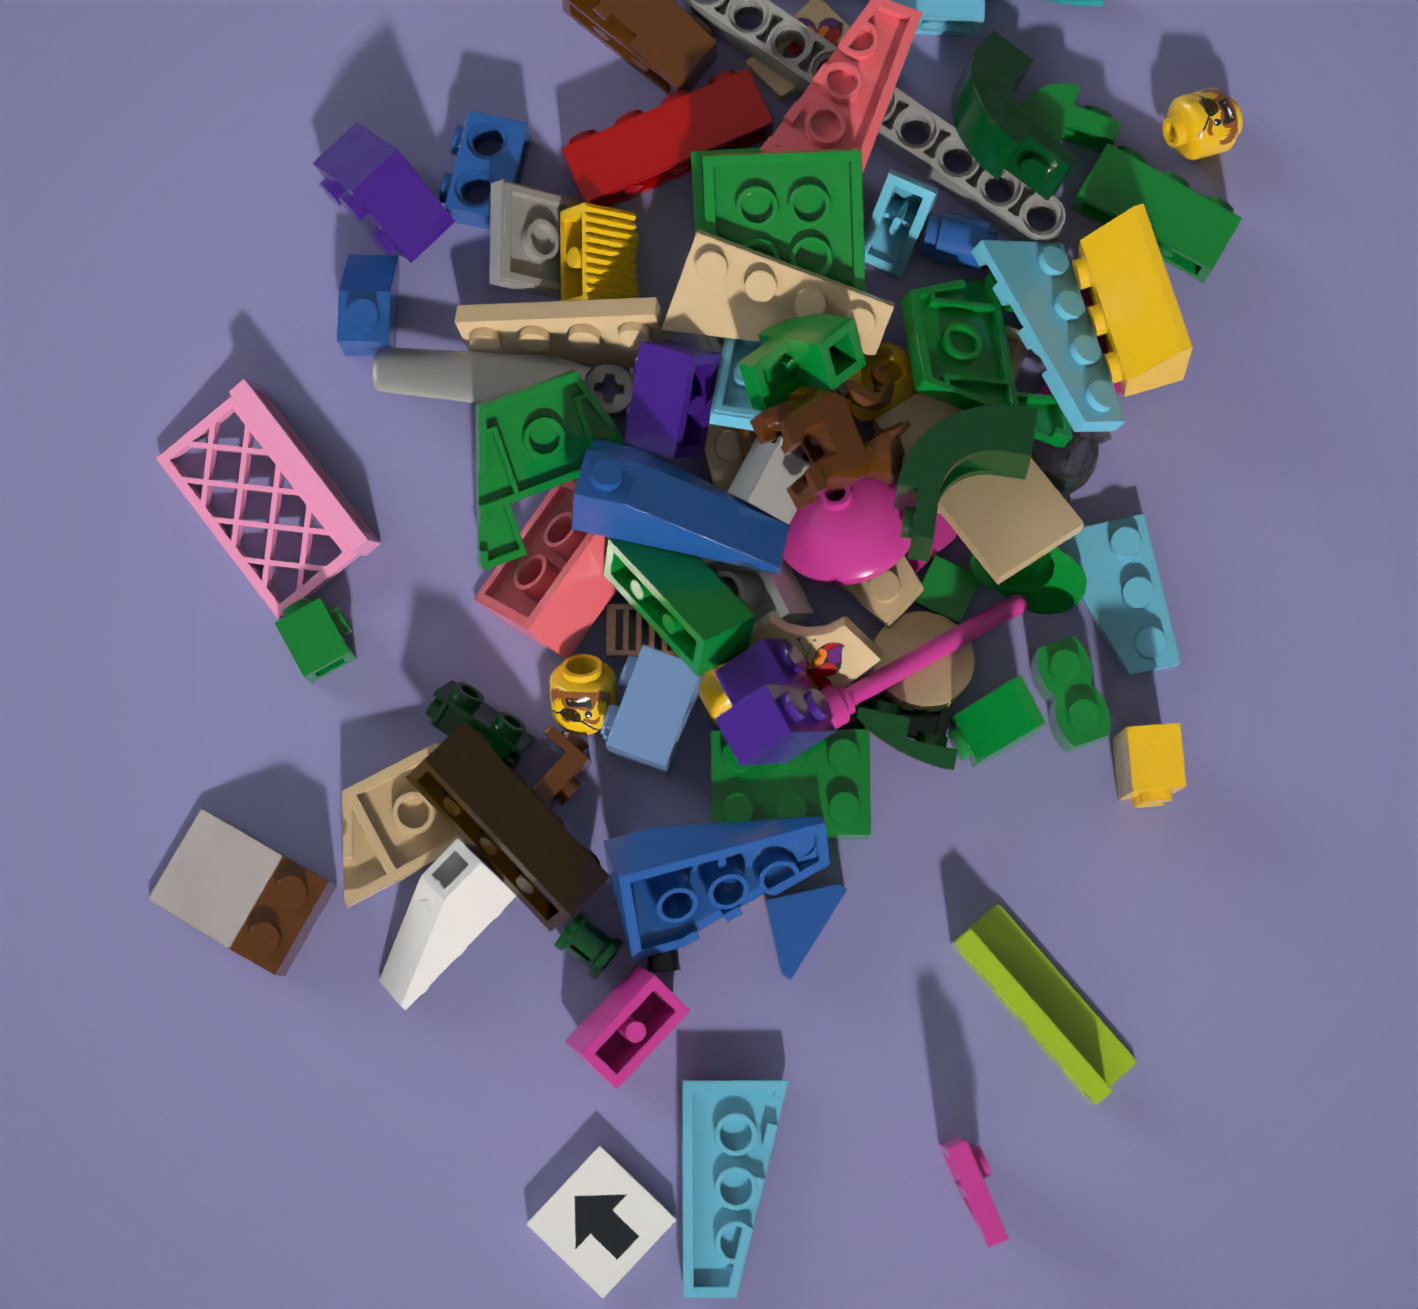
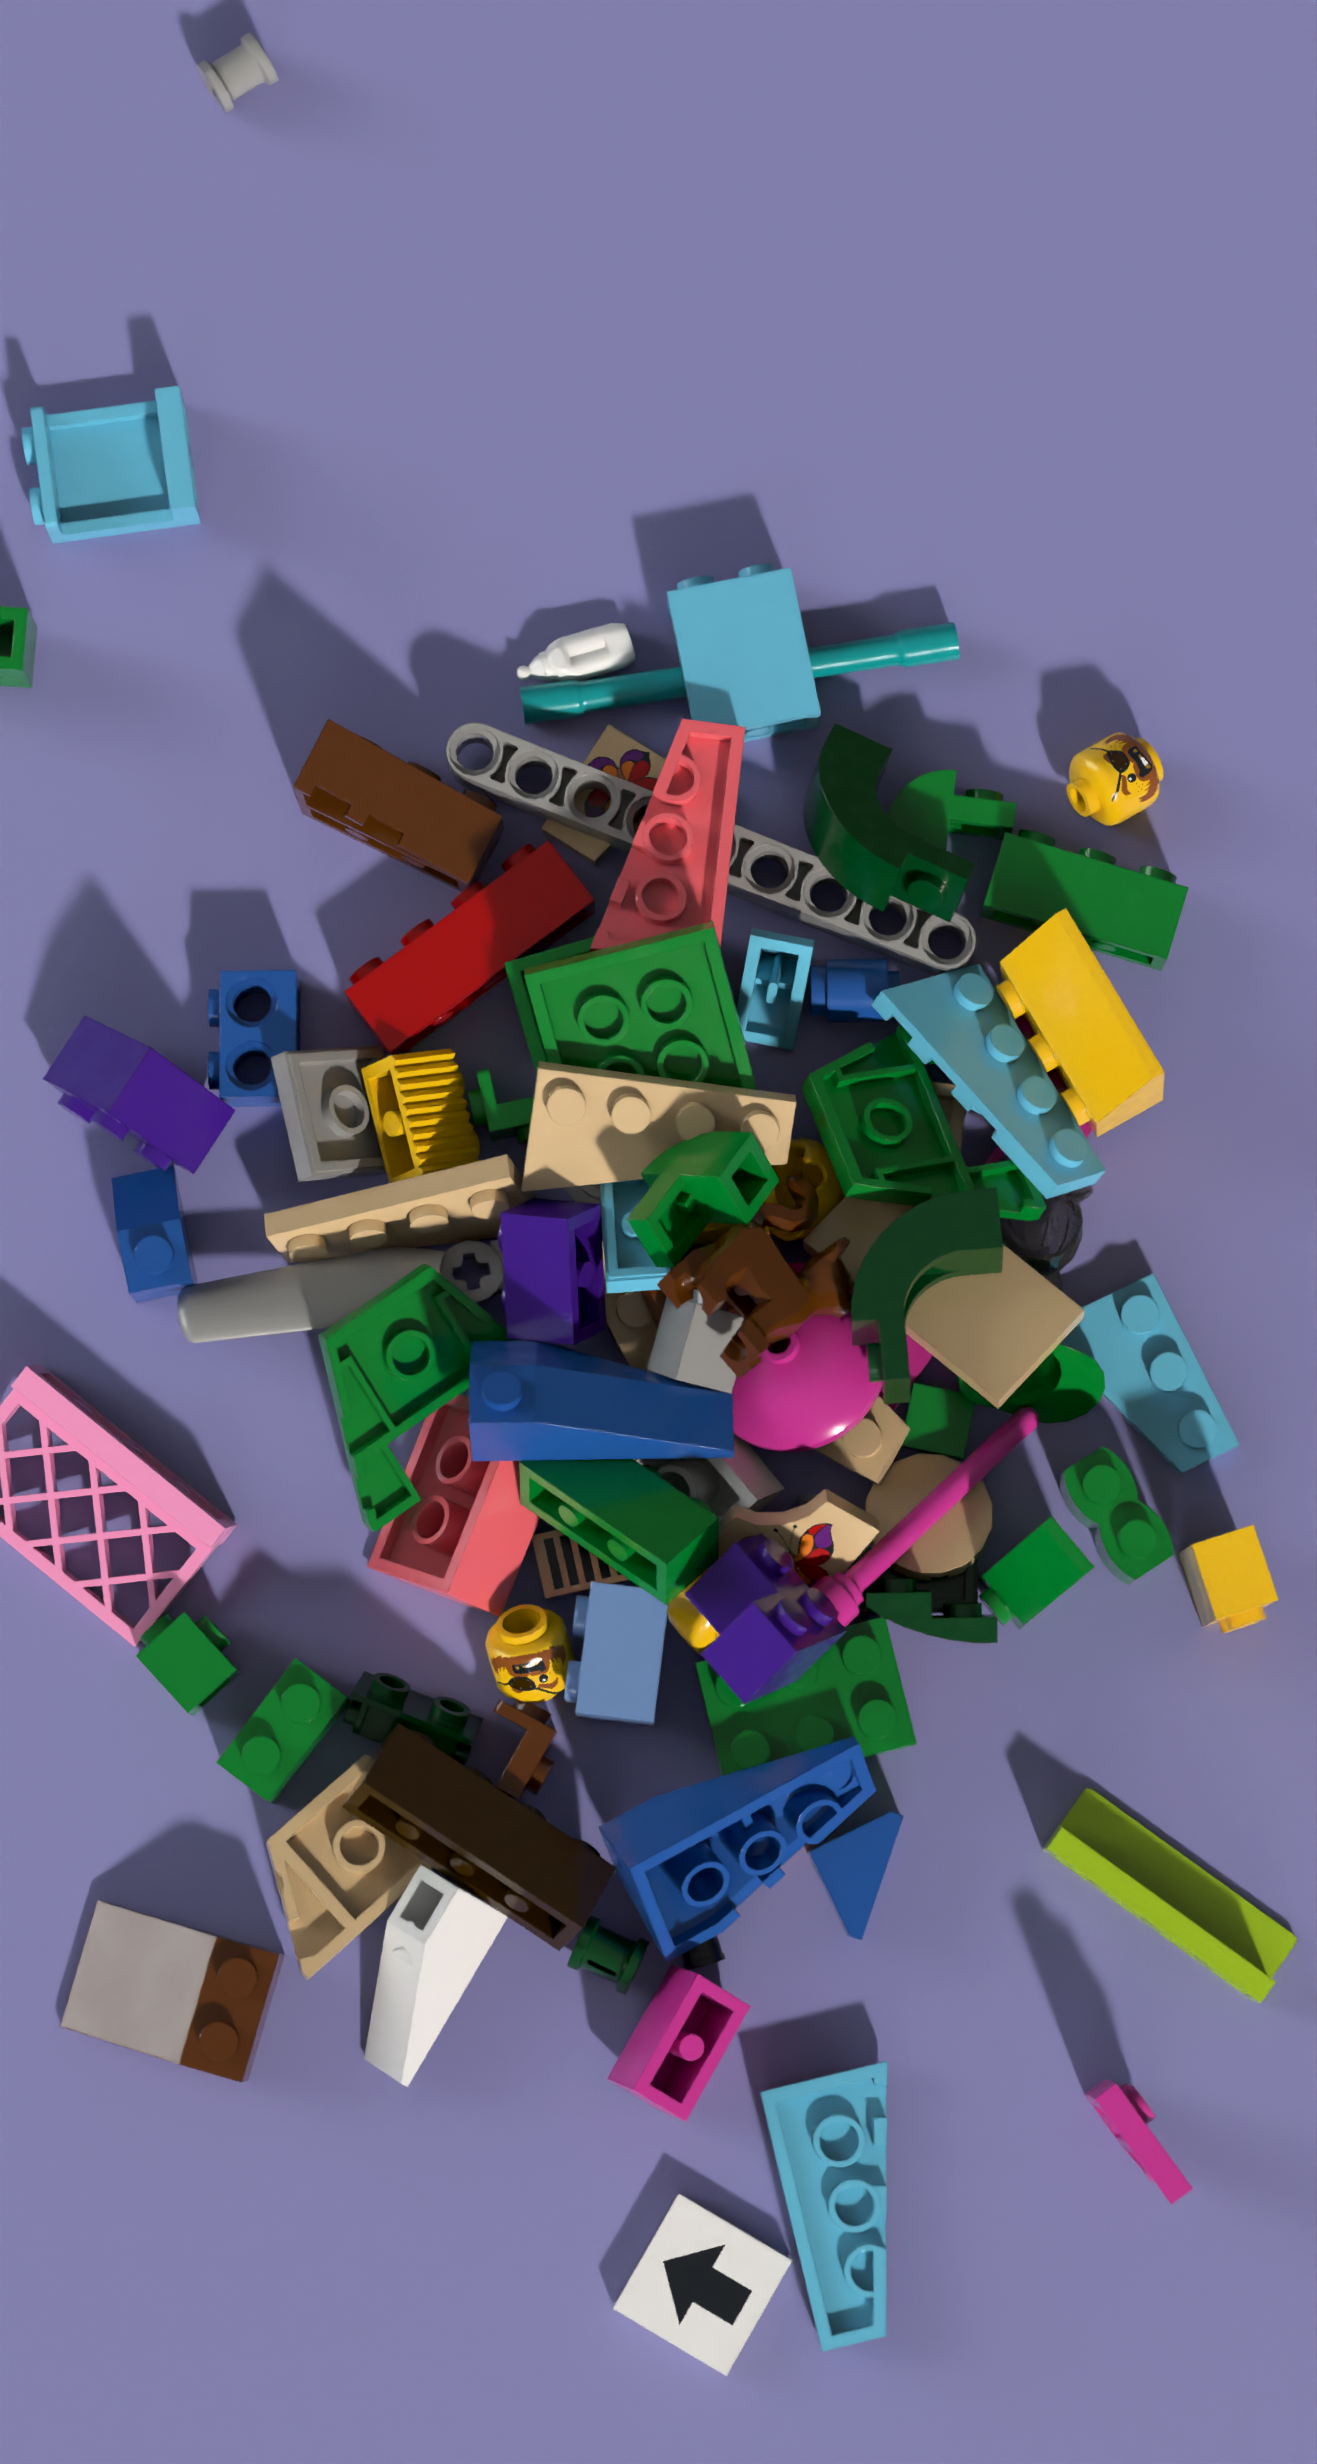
camera: 15 degrees left, 0 degrees up
(376, 710) = (284, 1731): none -> green brick
(662, 275) = (503, 1119): none -> green bracket

